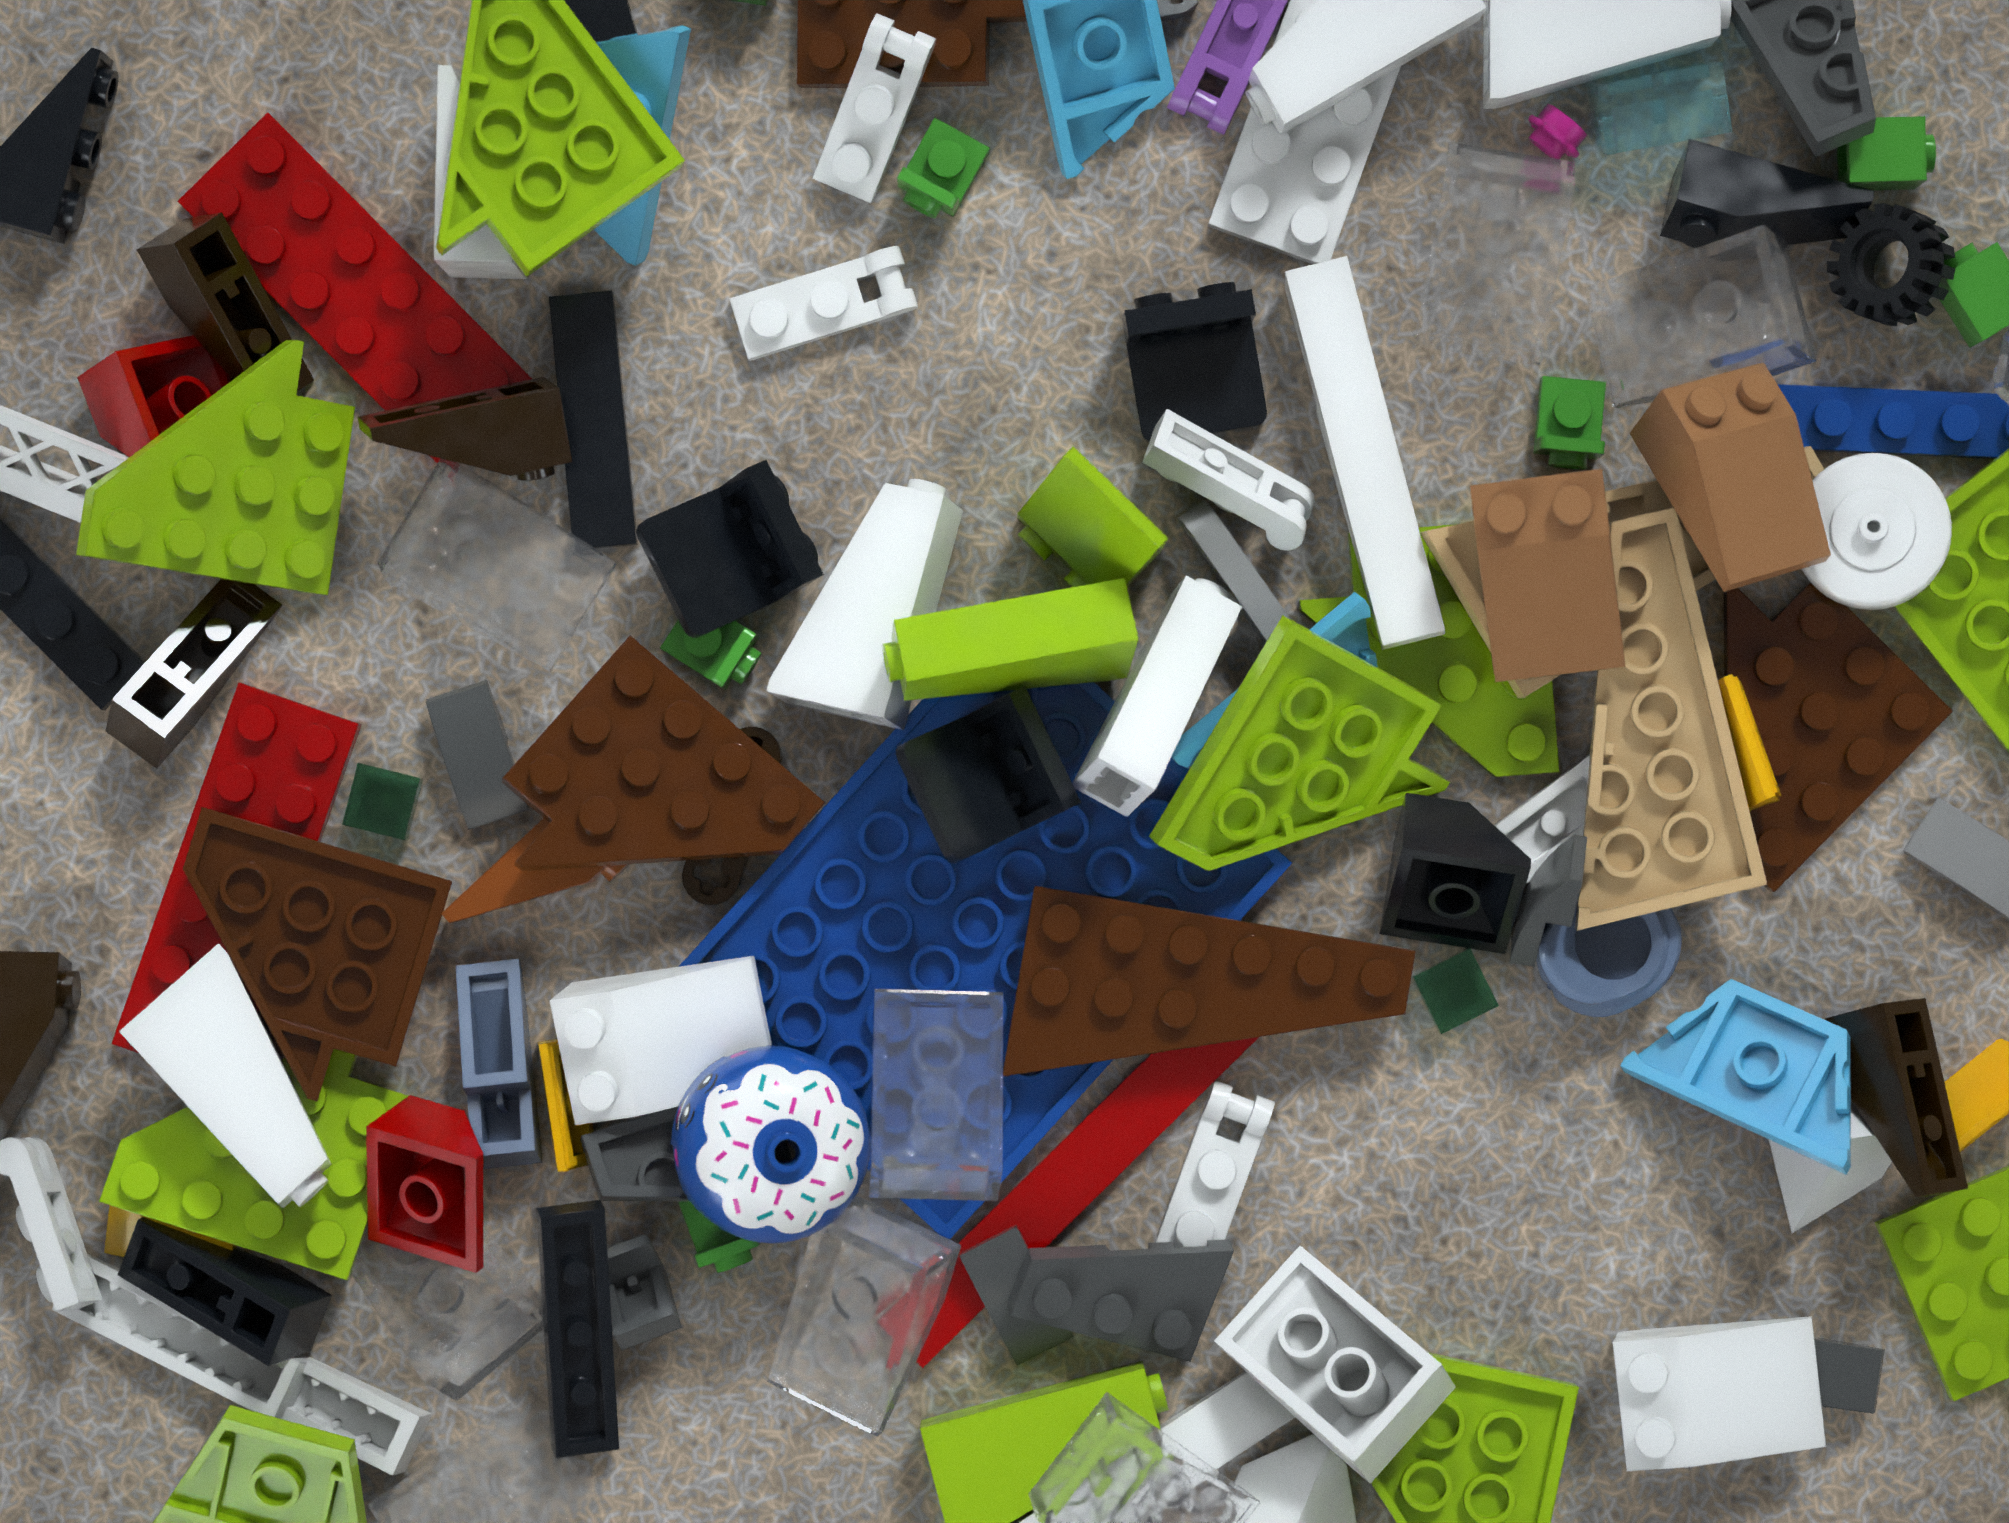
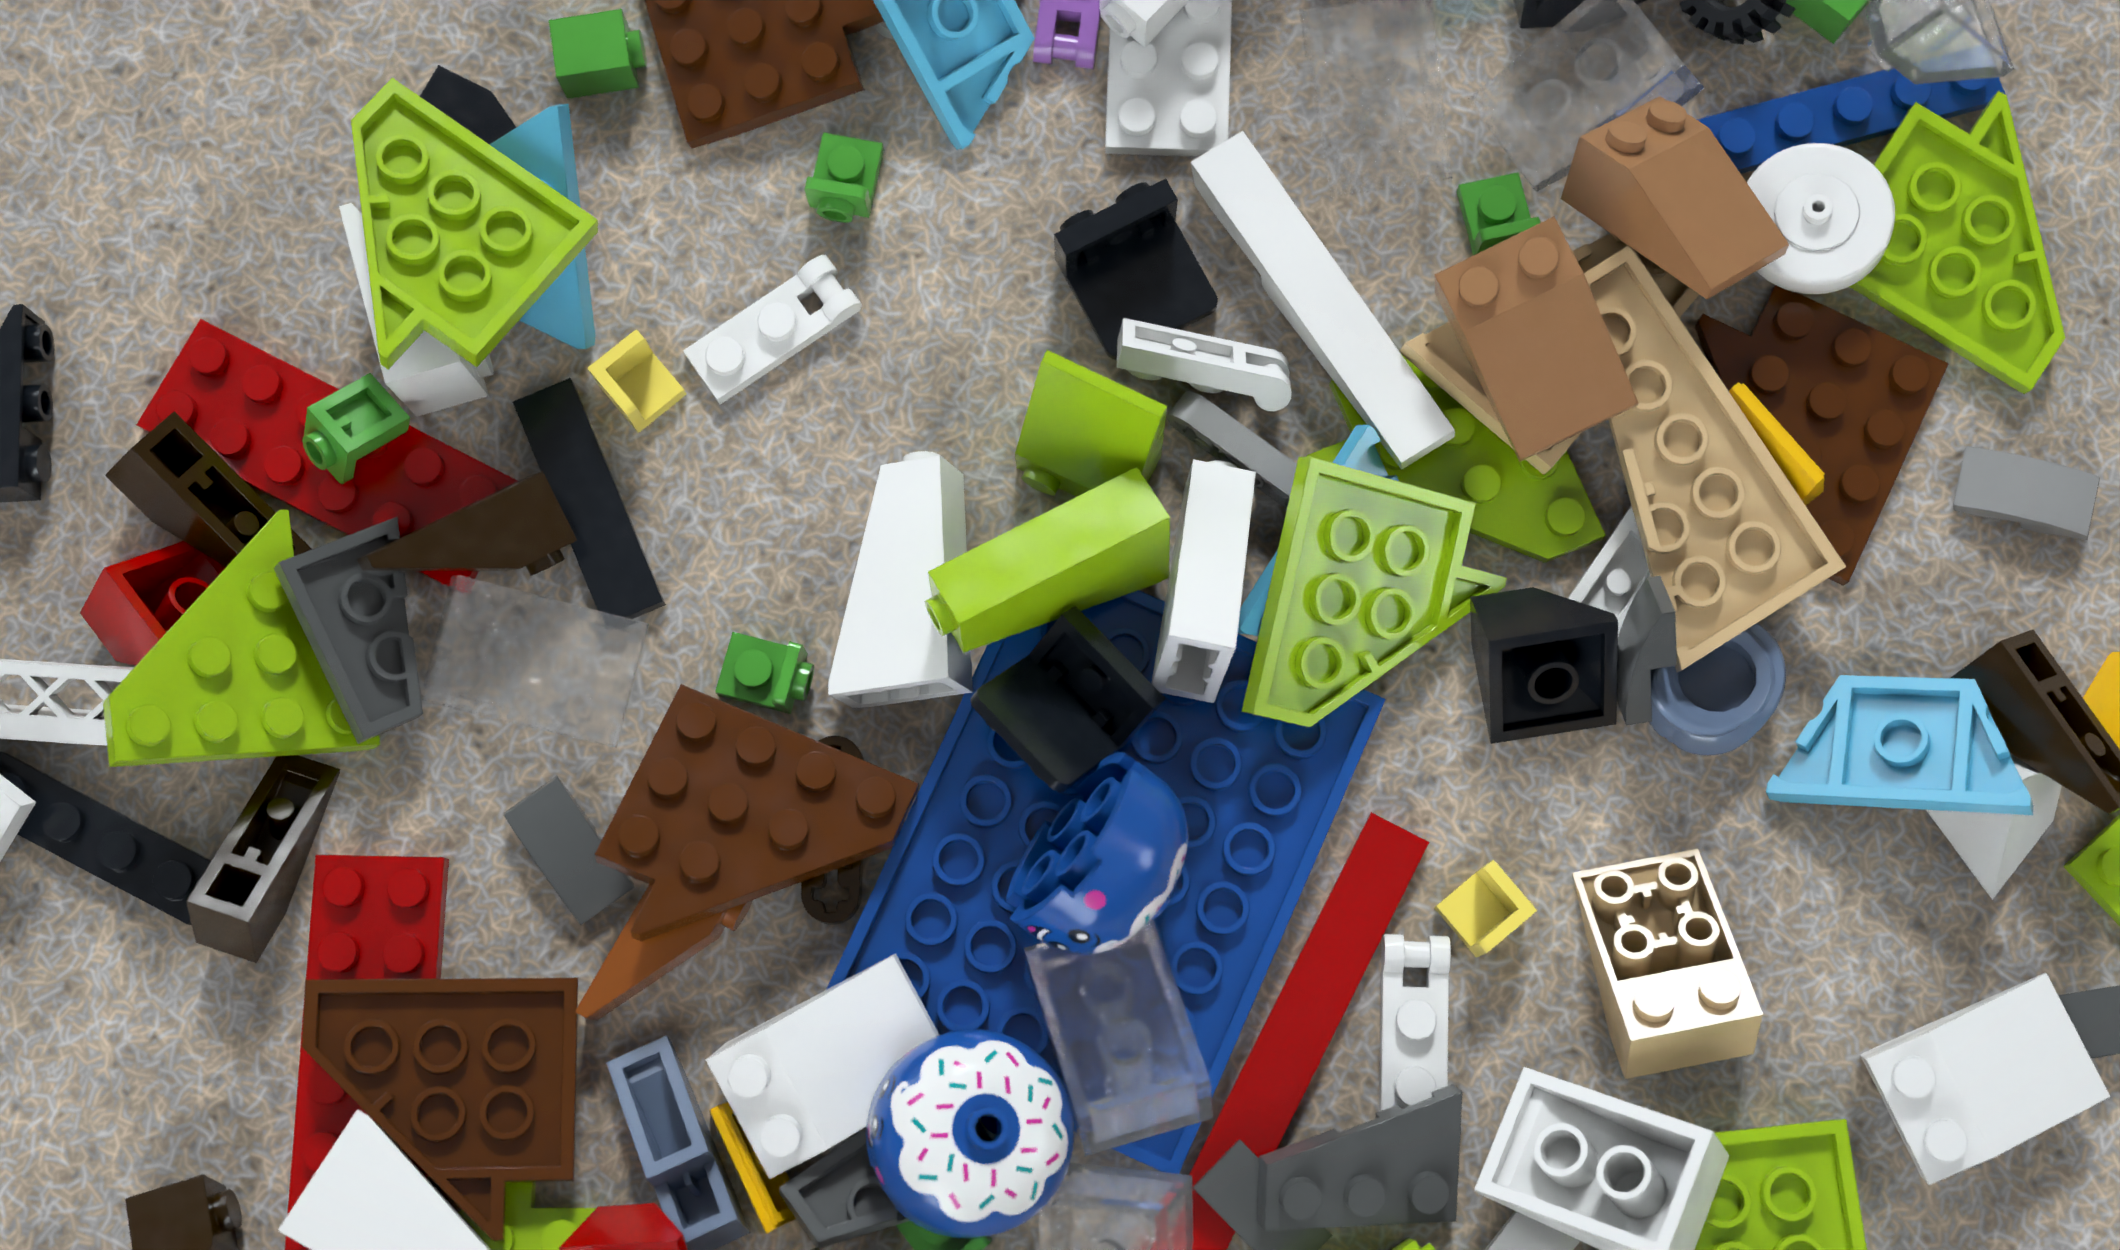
camera: 15 degrees left, 10 degrees down
(339, 484) = (357, 629): none -> dark grey wing
(382, 801) = (488, 924): clear green plate -> none
(388, 280) = (351, 426): none -> bright green bracket
(675, 318) = (636, 381): none -> light yellow panel
(729, 551) = (754, 576): black bracket -> none
(873, 110) = (764, 137): white plate -> none
(970, 938) = (1102, 861): none -> blue cylinder
(1153, 979) = (1310, 844): reddish brown wing -> none
(1316, 1090) = (1485, 909): none -> light yellow panel
(1454, 990) = (1582, 772): clear green plate -> none
(1466, 1191) = (1666, 965): none -> tan slope

